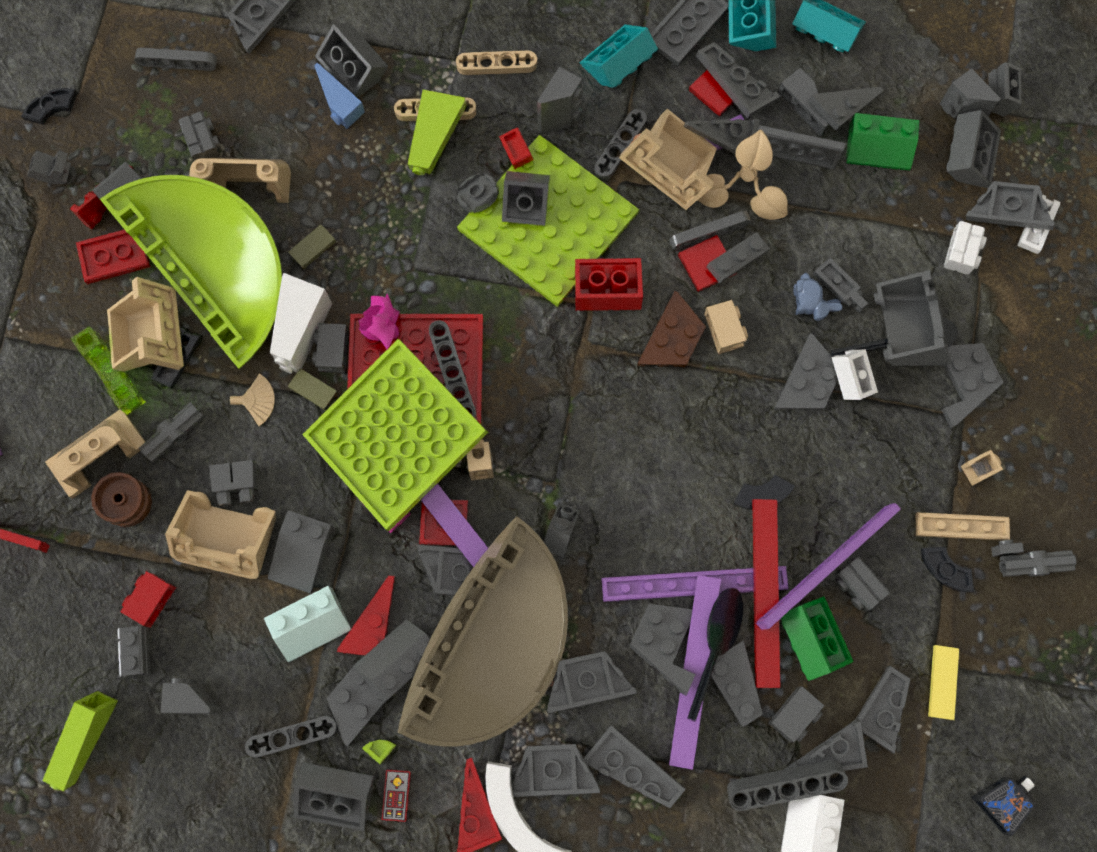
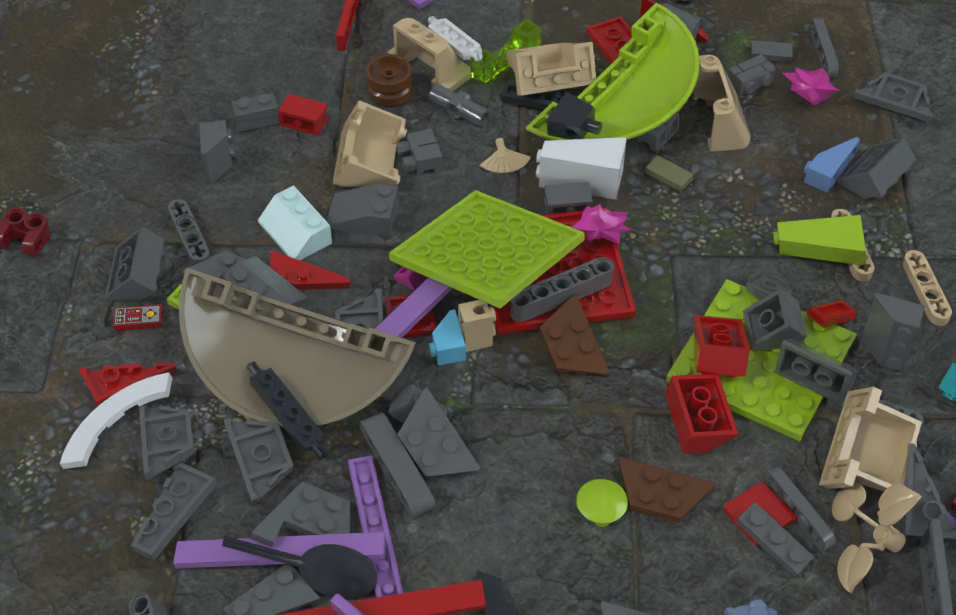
camera: 80 degrees right, 25 degrees down
(76, 420) = (459, 41): none -> white plate
(78, 739) = (178, 90): lime slope -> none
(165, 109) = (772, 50): none -> dark grey tile
(230, 85) = (811, 85): none -> dark pink hair
(249, 317) = (572, 119): none -> black torso
(312, 389) = (525, 193): olive tile -> none
(485, 490) = (448, 341): none -> medium azure slope
(507, 377) = (572, 341): none -> reddish brown wing
(542, 249) = (720, 346): none -> red slope
(549, 650) = (287, 410): none -> black plate
(585, 176) = (815, 370): none -> dark grey slope
(602, 519) = (434, 440): none -> dark grey wing
(616, 557) = (397, 465): none -> dark grey beam
(678, 387) = (602, 501): none -> lime dish
(725, 326) = (684, 536): tan brick -> none

